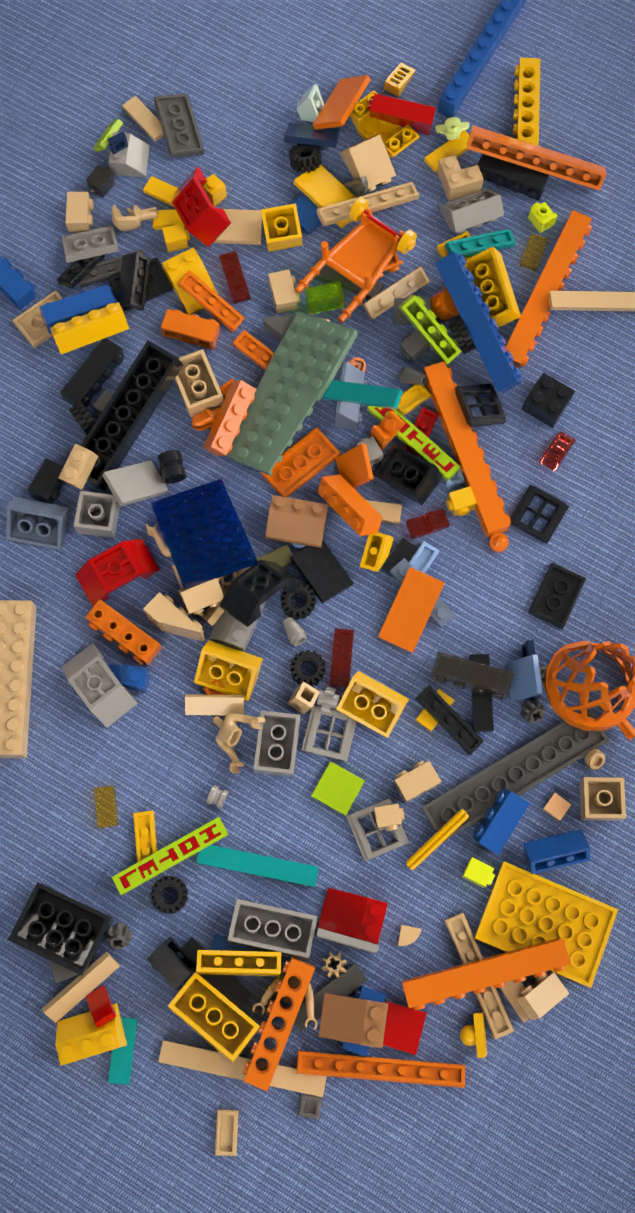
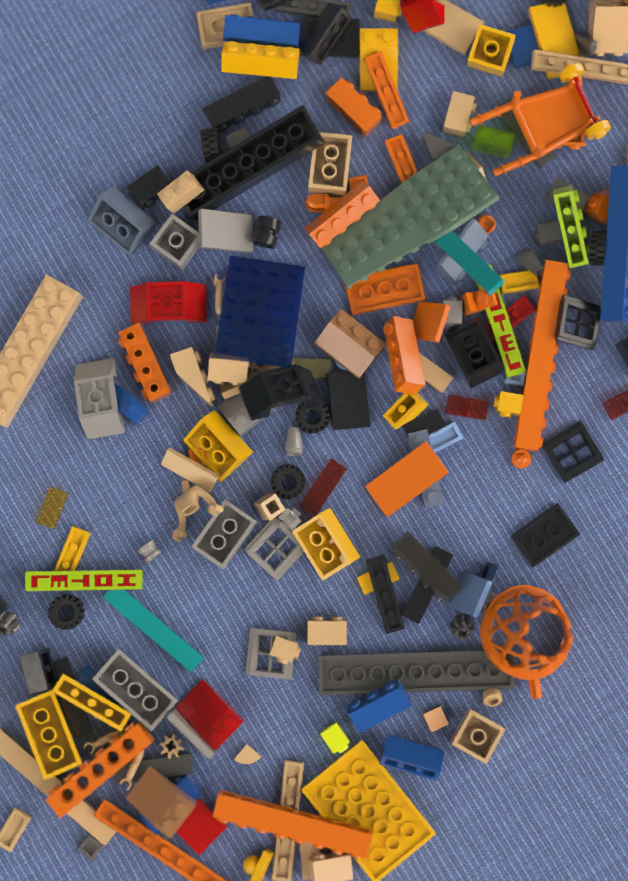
camera: 30 degrees right, 10 degrees up
(234, 277) = (422, 75): clear red tile -> none
(338, 788) = (256, 600): lime tile -> none
(400, 289) = (563, 170): tan tile -> none
(438, 838) = (315, 691): yellow axle -> none

